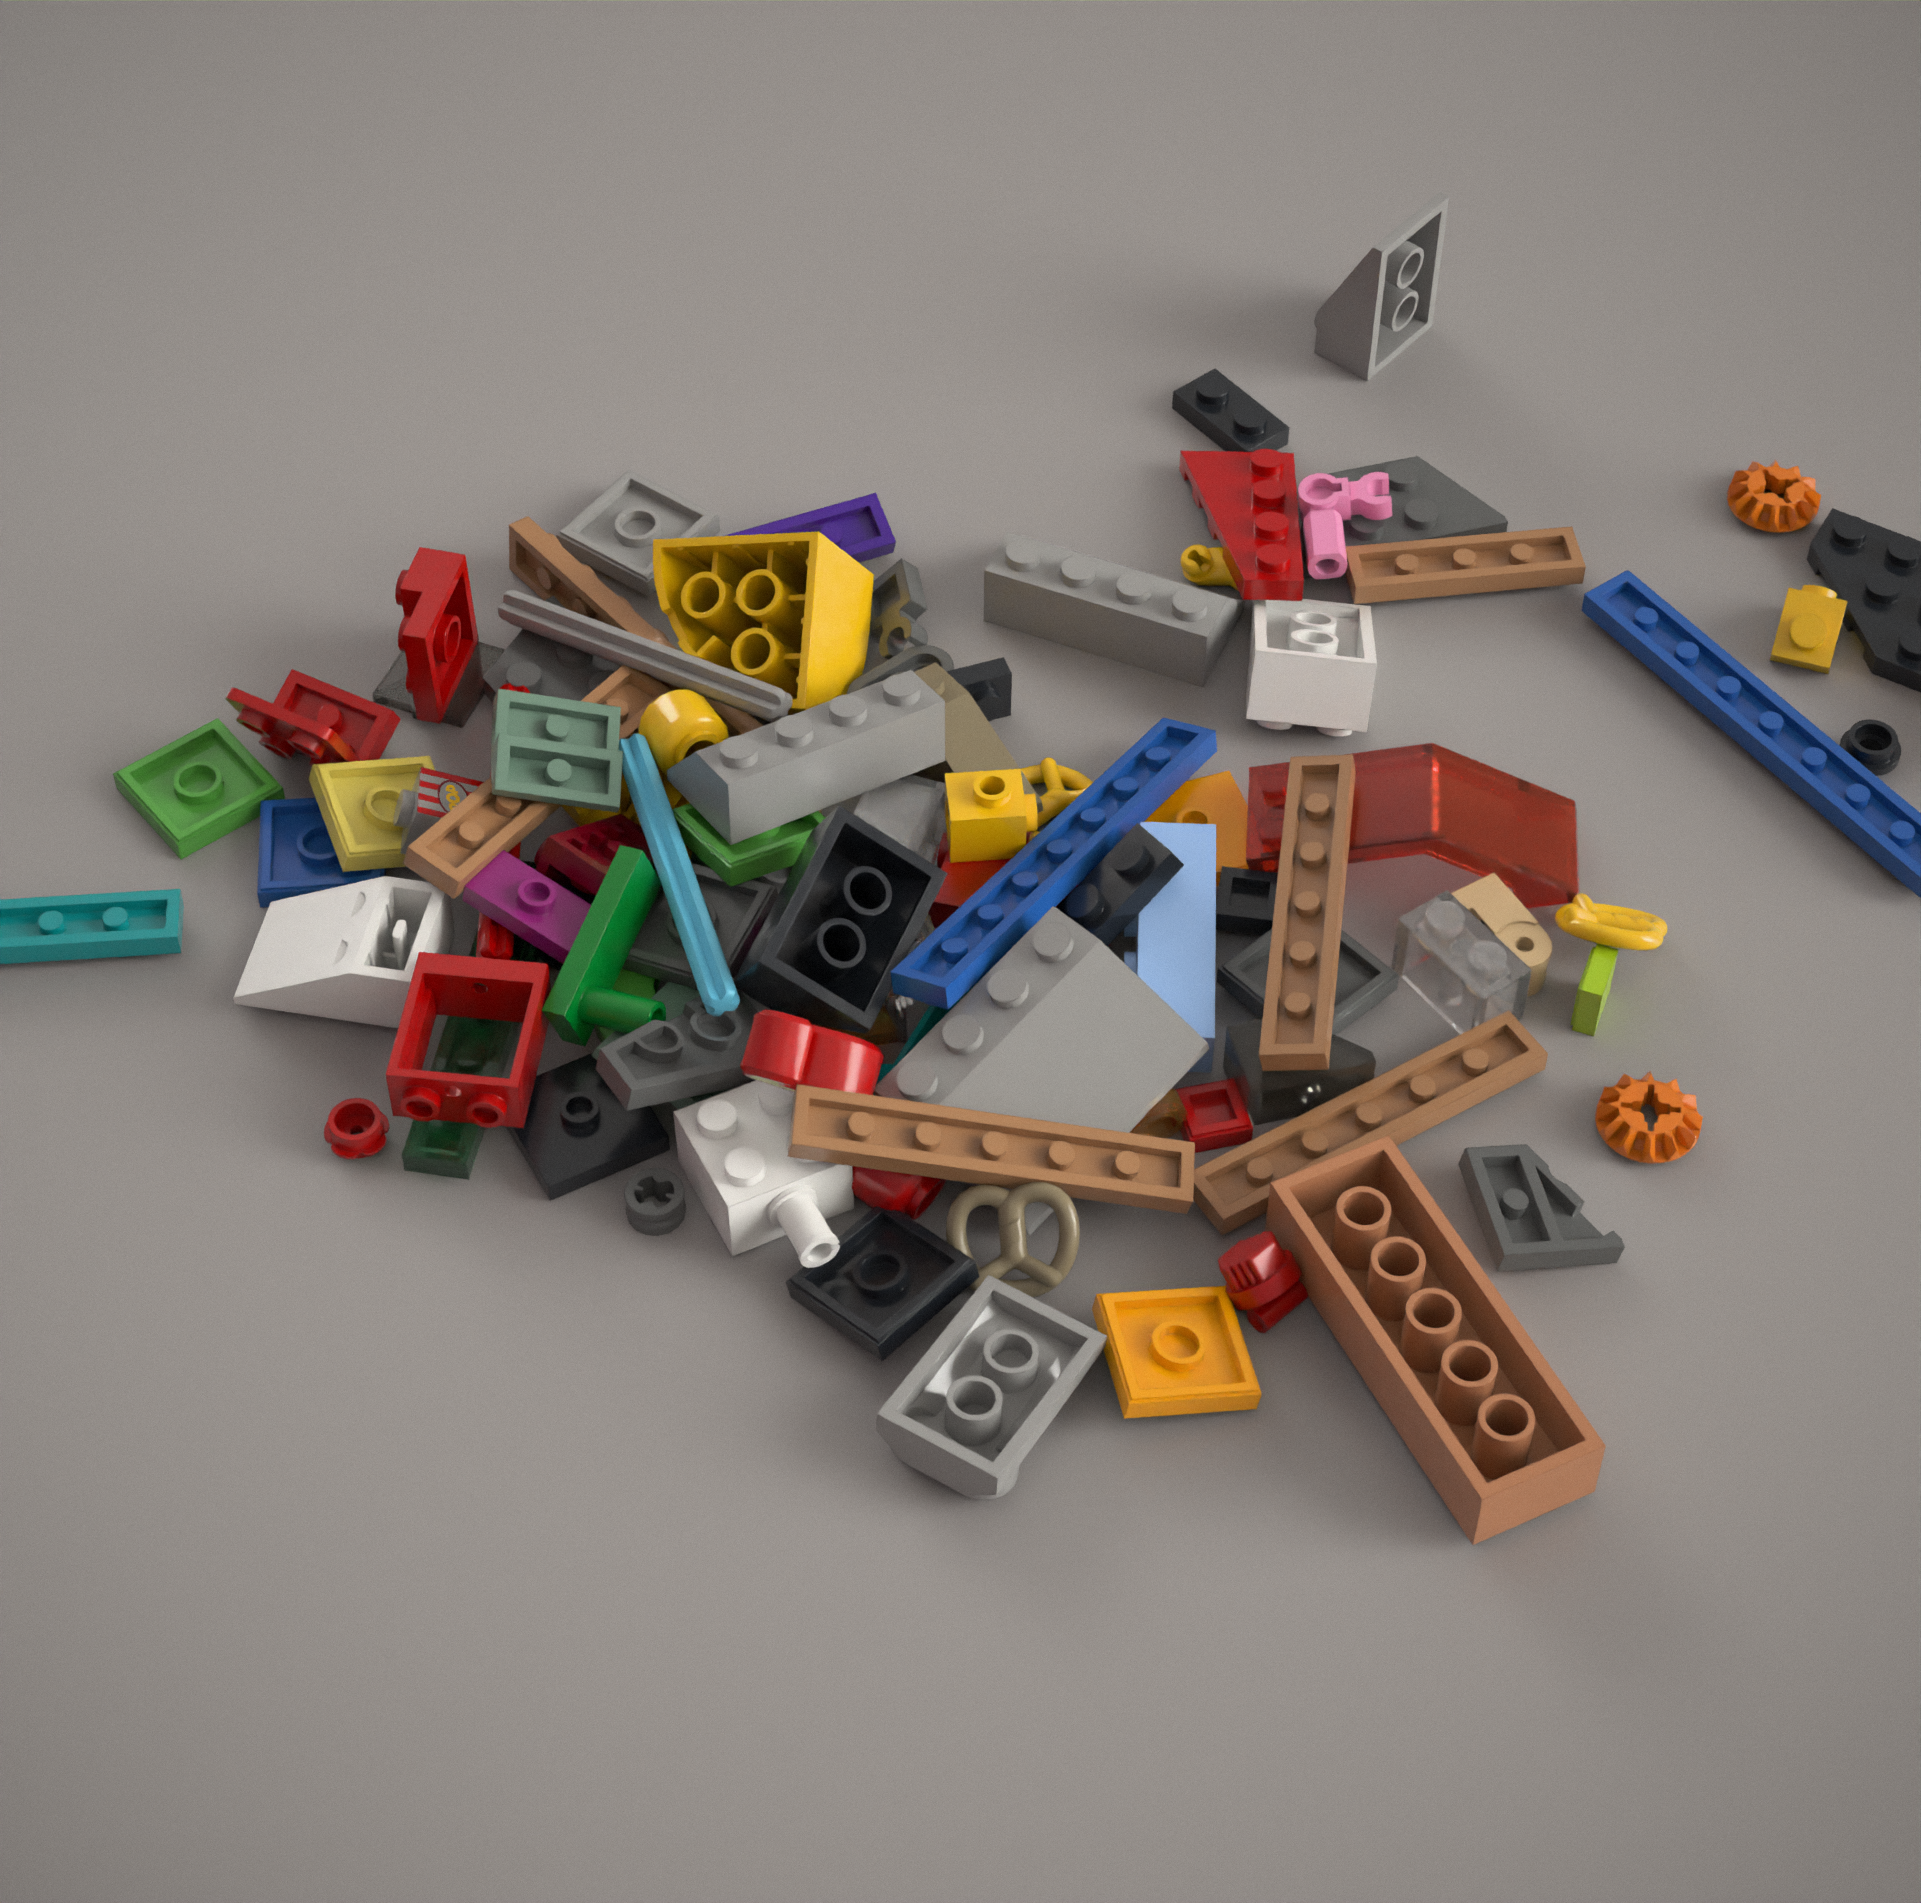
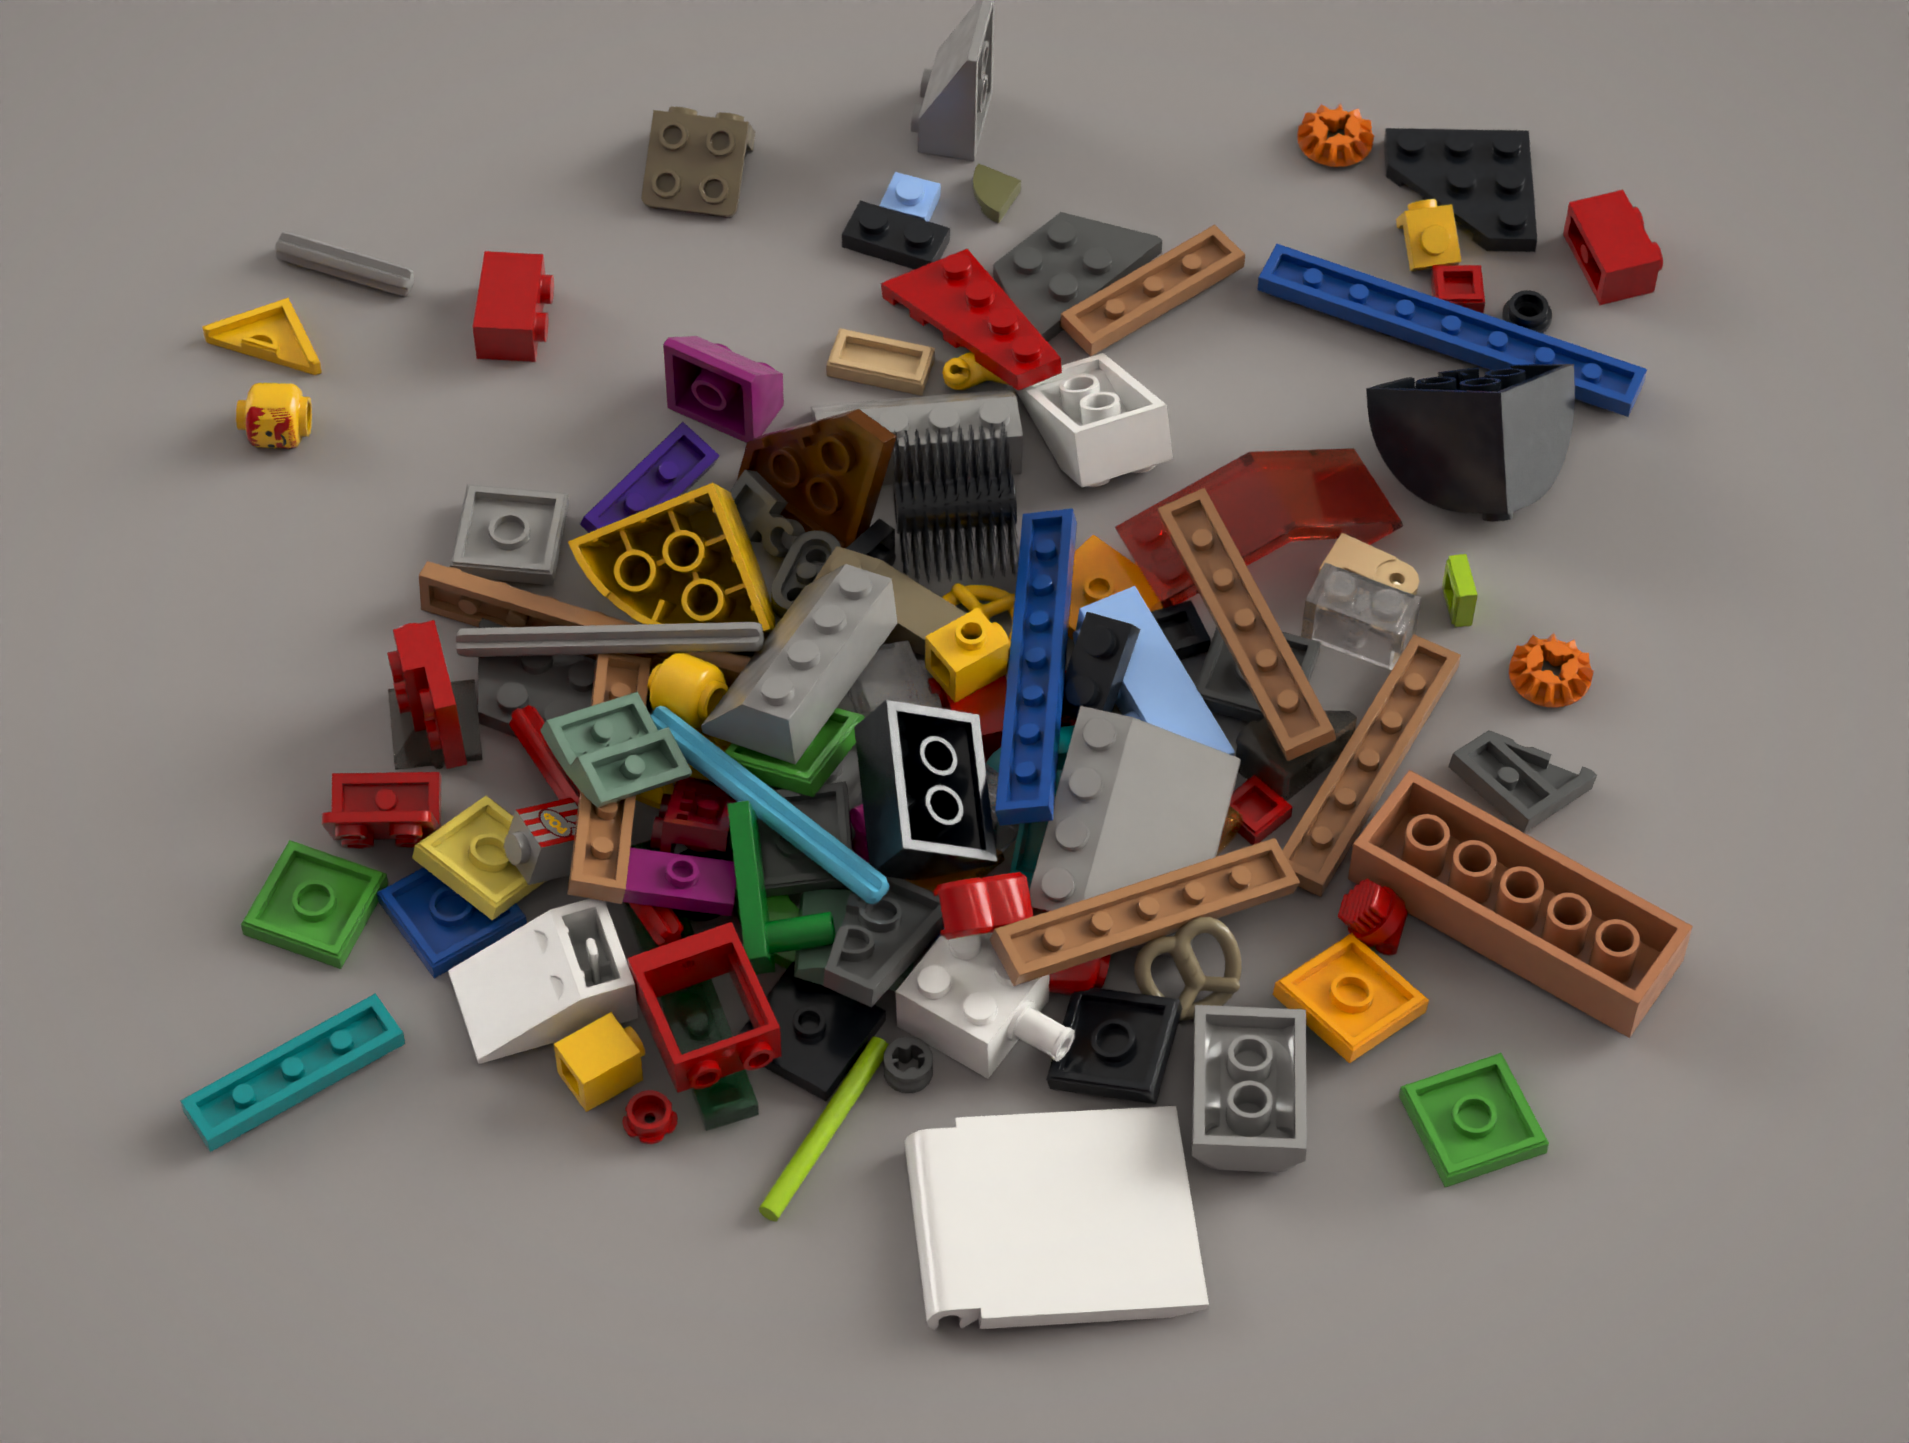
camera: 30 degrees left, 5 degrees up
(340, 1049) = (600, 1061): none -> yellow brick
(498, 340) = (275, 415): none -> yellow head
(519, 1226) = (823, 1129): none -> lime bar
(552, 272) = (268, 334): none -> yellow tile
(670, 238) = (344, 264): none -> light grey axle
(692, 1429) = (1055, 1218): none -> white piece
(793, 330) = (511, 306): none -> red brick
(941, 477) = (721, 387): none -> magenta slope
(974, 587) = (826, 471): none -> reddish brown plate
(1073, 271) = (696, 161): none -> dark tan bracket
(1081, 667) = (956, 503): none -> black piece
(1130, 524) = (880, 362): none -> tan tile
(1229, 1548) = (1473, 1120): none -> bright green tile
(1274, 386) = (912, 196): none -> light blue plate
(1324, 507) = (1029, 285): bright pink bar -> none
(1364, 414) = (994, 191): none -> olive tile
(1611, 924) = (1443, 535): yellow piece -> none
(1719, 838) = (1476, 438): none -> black brick
(1813, 692) = (1459, 285): none -> red tile

